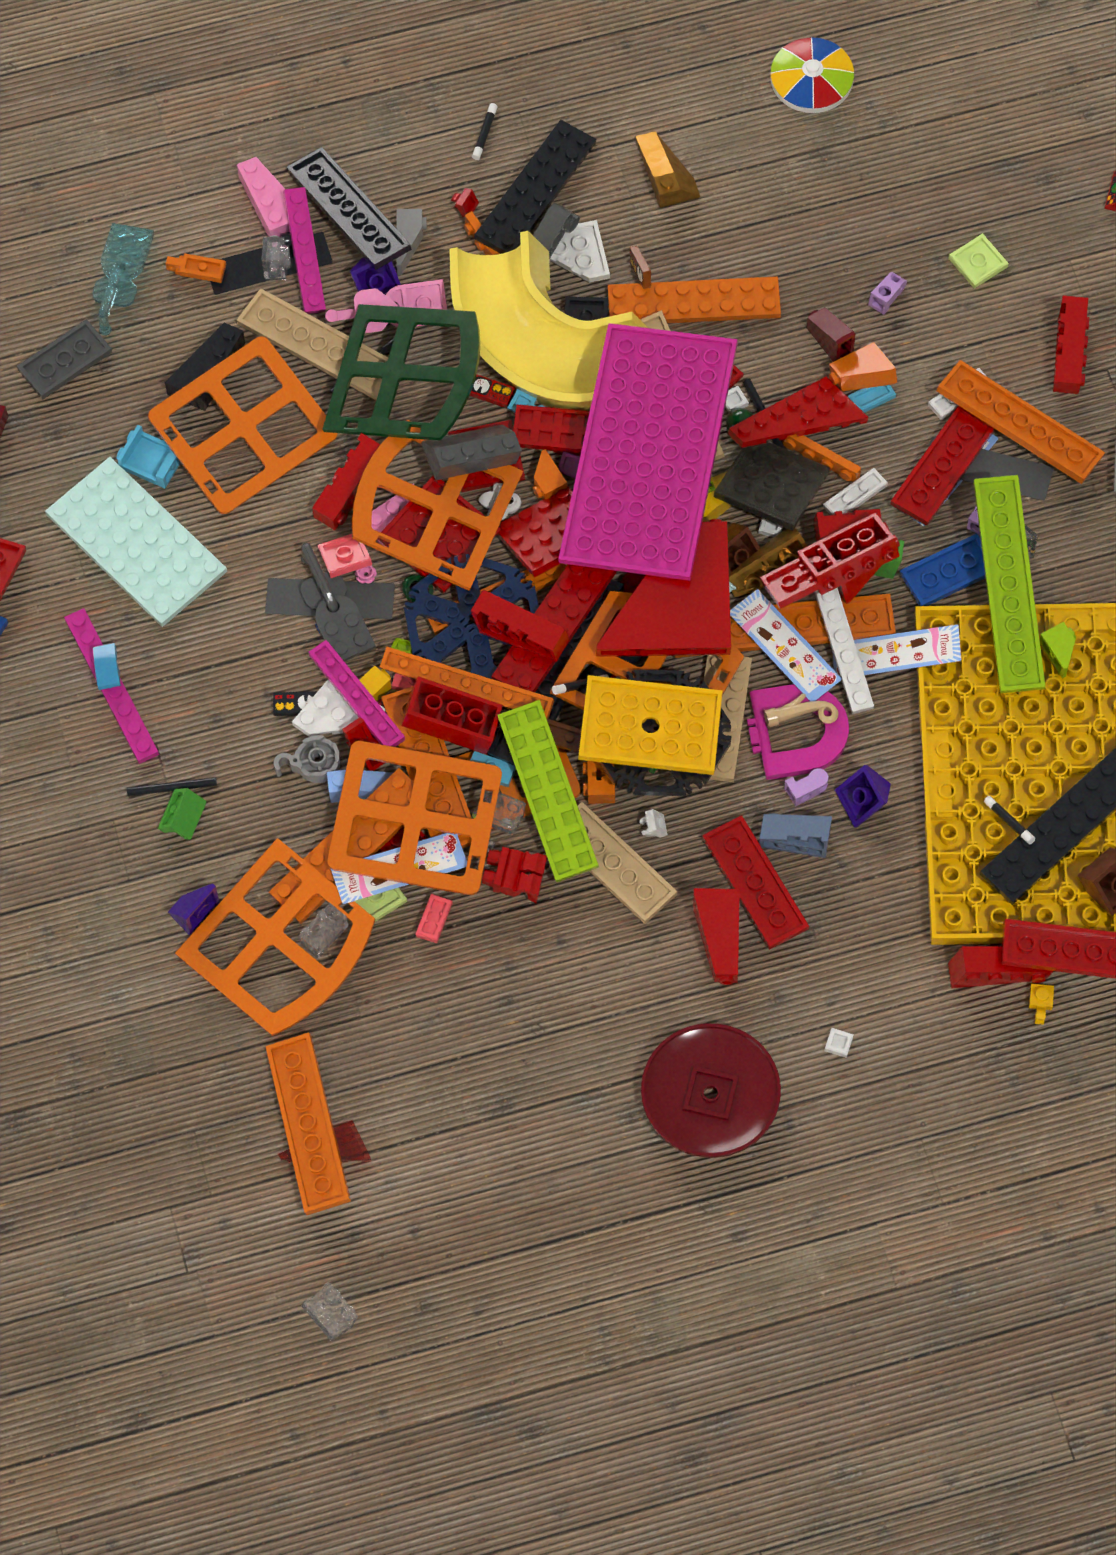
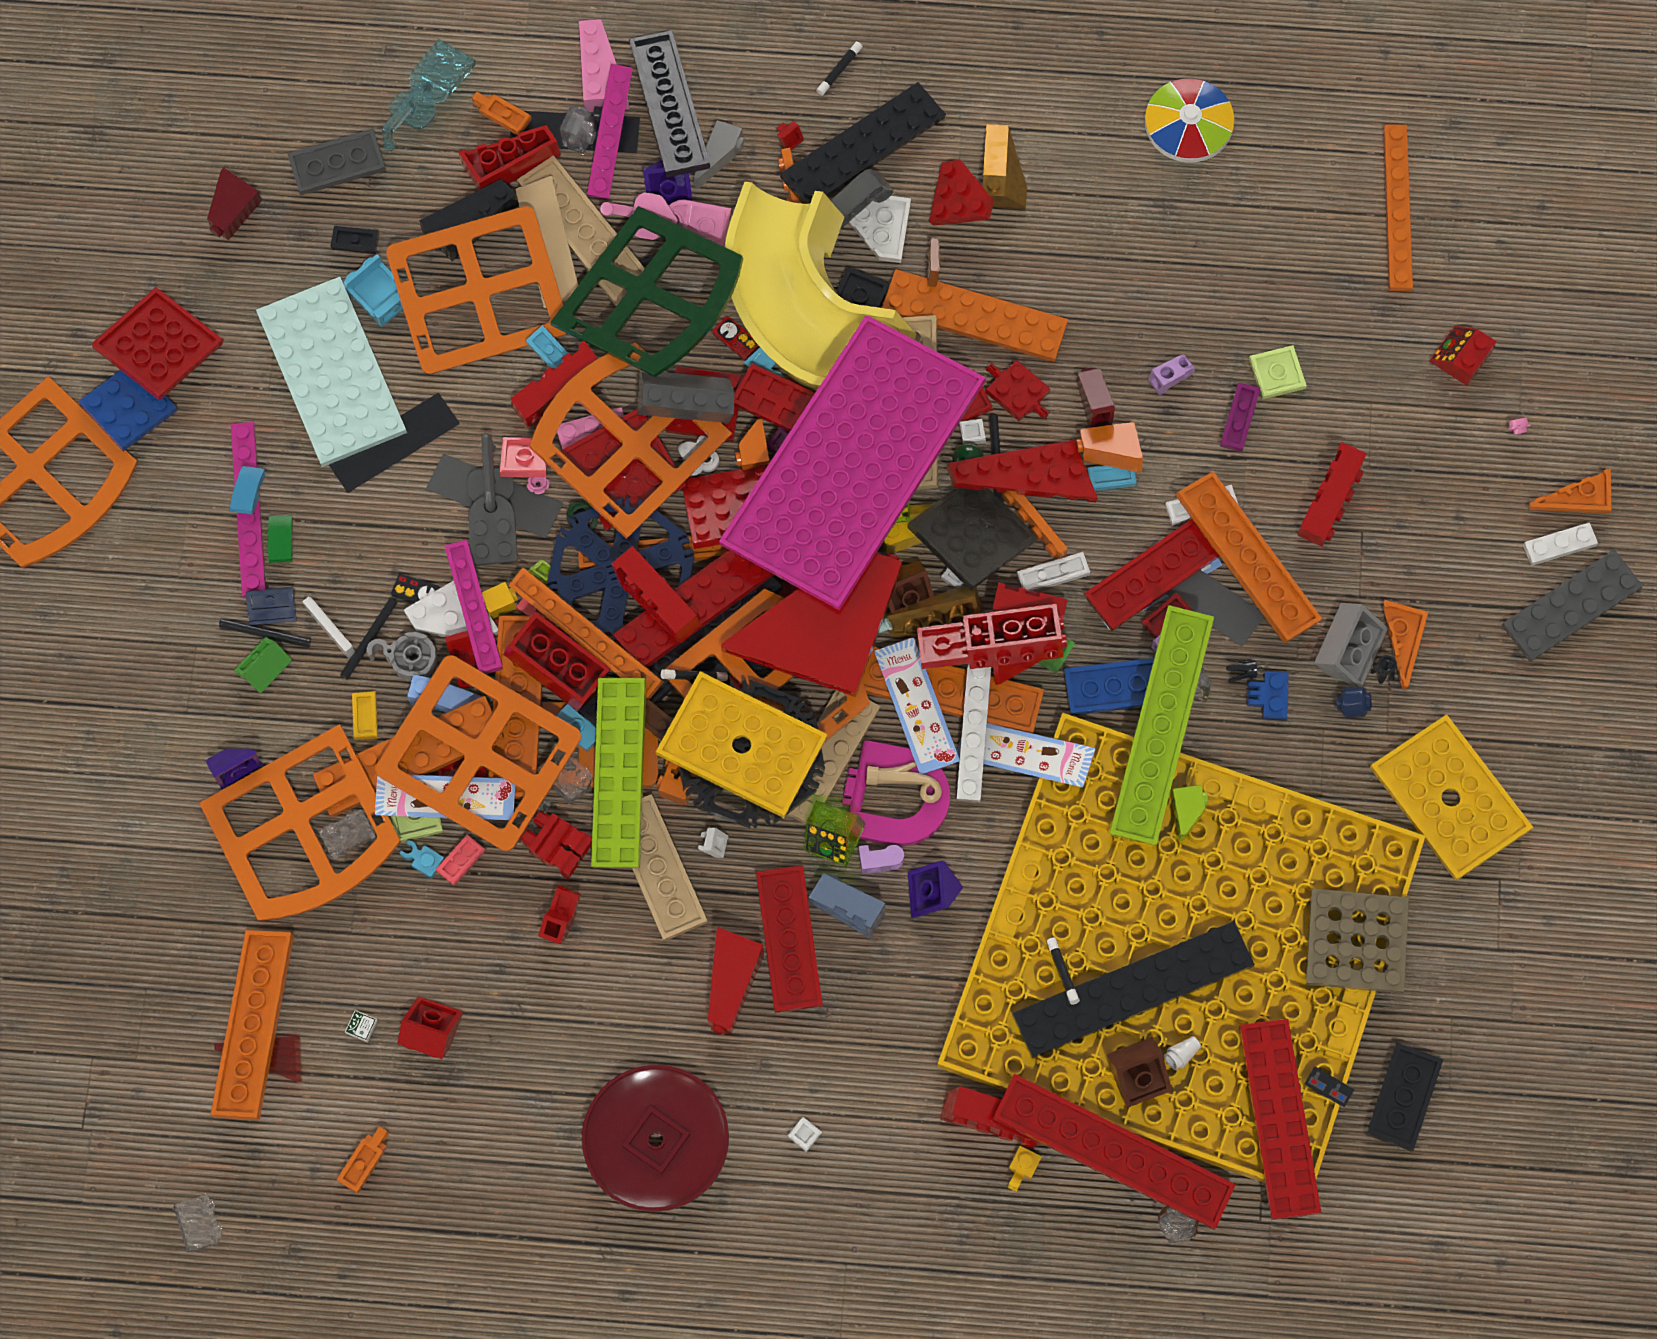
camera: 20 degrees right, 5 degrees up
(110, 420) = (354, 240): none -> black plate
(152, 700) = (280, 539): none -> green slope
(169, 760) = (271, 605): none -> dark blue plate
(221, 302) = (509, 157): none -> red wedge
(229, 760) = (328, 627): none -> white tile
(240, 558) = (422, 425): none -> black sticker
(268, 325) = (543, 200): none -> tan sticker
(268, 761) = (371, 634): none -> black bar
(293, 826) = (365, 715): none -> yellow tile
(326, 454) = (546, 347): none -> medium azure plate
(402, 930) = (424, 861): none -> medium azure plate
(404, 1092) = (361, 1026): none -> tile
(457, 1205) = (363, 1160): none -> orange hinge
(468, 1071) = (429, 1027): none -> red slope
(545, 931) = (561, 915): none -> red brick
(639, 203) = (959, 196): none -> red plate
(757, 777) = (832, 833): none -> clear neon green slope
(761, 352) = (1018, 390): none -> red plate
(962, 308) = (1240, 417): none -> magenta plate
(965, 501) = (1155, 620): none -> red tile
(1024, 89) = (1398, 208): none -> orange plate
(1058, 514) = (1249, 667): none -> black piece
(1087, 532) = (1270, 695): none -> blue hinge

